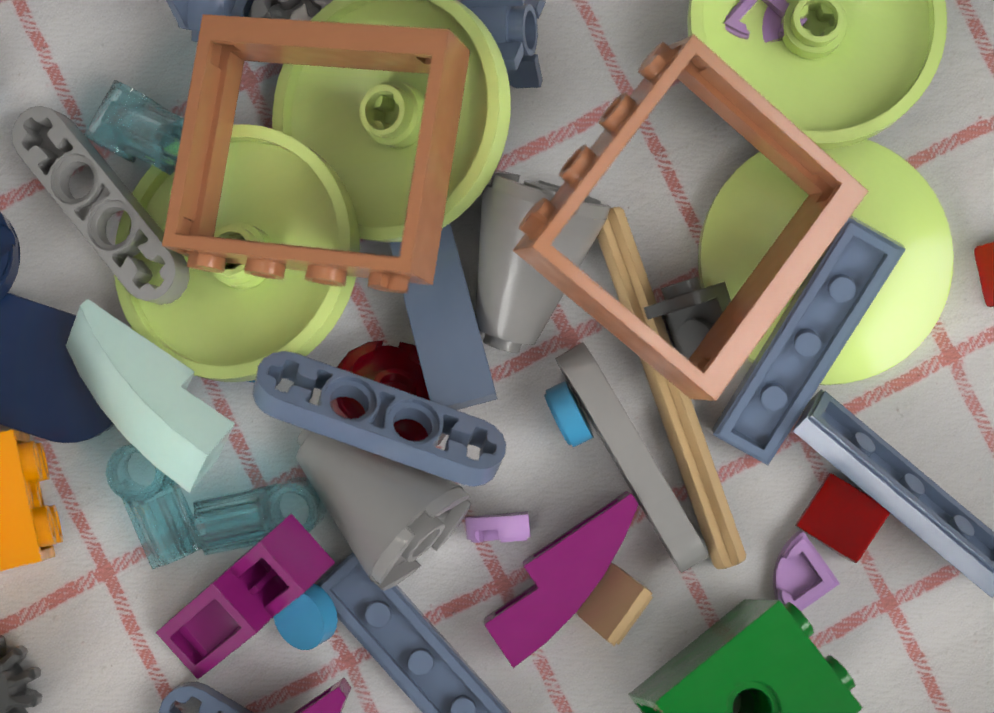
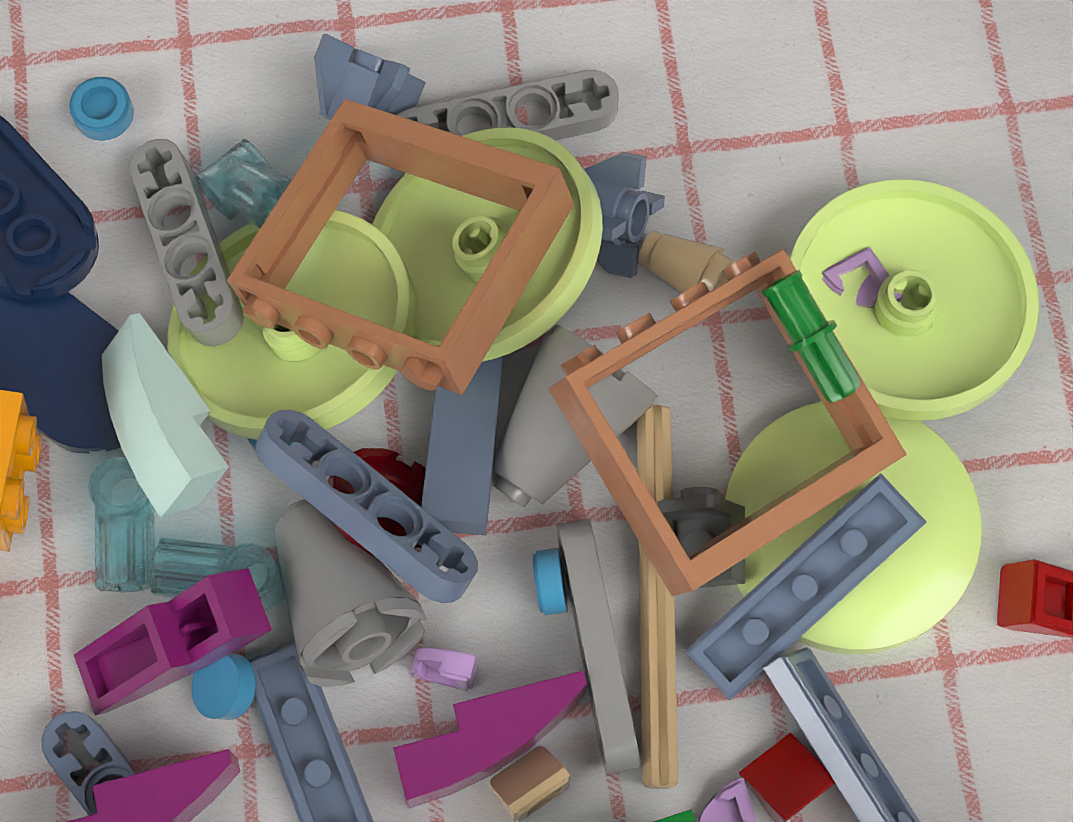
camera: 20 degrees right, 15 degrees down
(592, 58) = (684, 261): none -> tan cone
(748, 114) = (812, 337): none -> green axle

